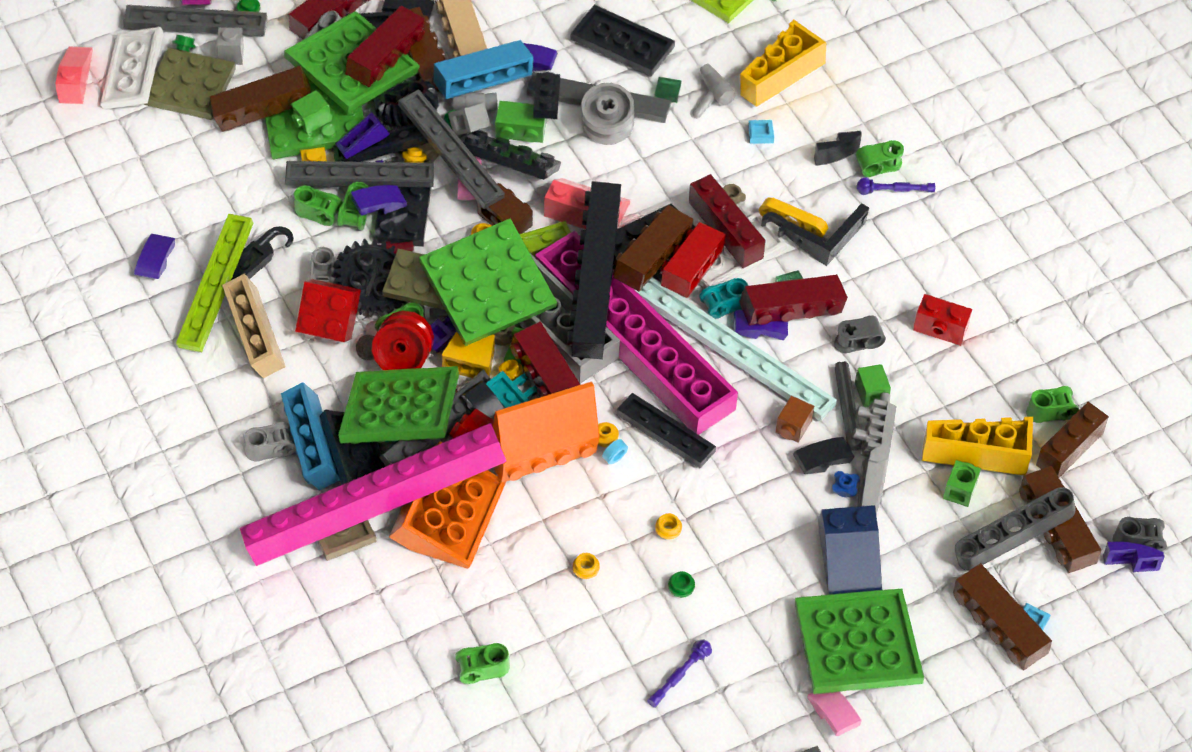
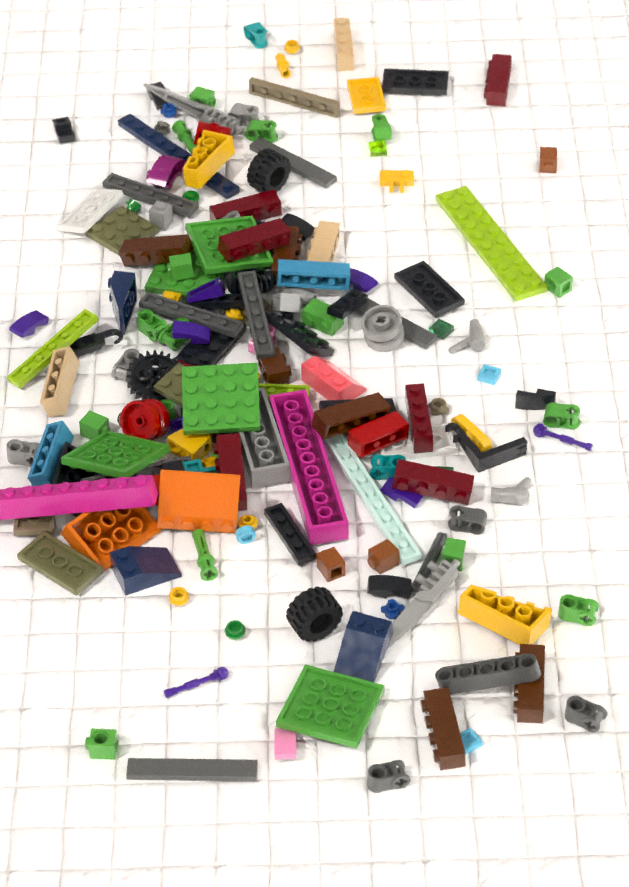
camera: 30 degrees right, 10 degrees down
(73, 75) = (50, 203): coral slope -> none
(259, 181) = (123, 297): none -> dark blue slope
(328, 310) = (111, 386): red brick -> none
(335, 372) = (93, 425): none -> bright green brick
(412, 577) = (60, 563): none -> olive plate
(481, 662) = (70, 628): bright green piece -> none
(518, 544) = (143, 567): none -> dark blue slope
(588, 505) = (205, 560): none -> bright green pin
(596, 270) = (299, 415): black brick -> none
(668, 520) = (251, 592): yellow plate -> none
(740, 452) = (330, 564): none -> dark orange brick
(773, 529) = (314, 614): none -> black tyre
(782, 64) = (529, 335): yellow wedge -> none
(890, 282) = (512, 495): none -> light grey piece
(942, 319) = (534, 529): red brick -> none
(959, 491) = (475, 636): bright green brick -> none
(981, 702) = (387, 776): none -> dark grey piece
(1073, 439) = (575, 636): reddish brown brick -> none
(1140, 556) = (566, 722): dark purple slope -> none

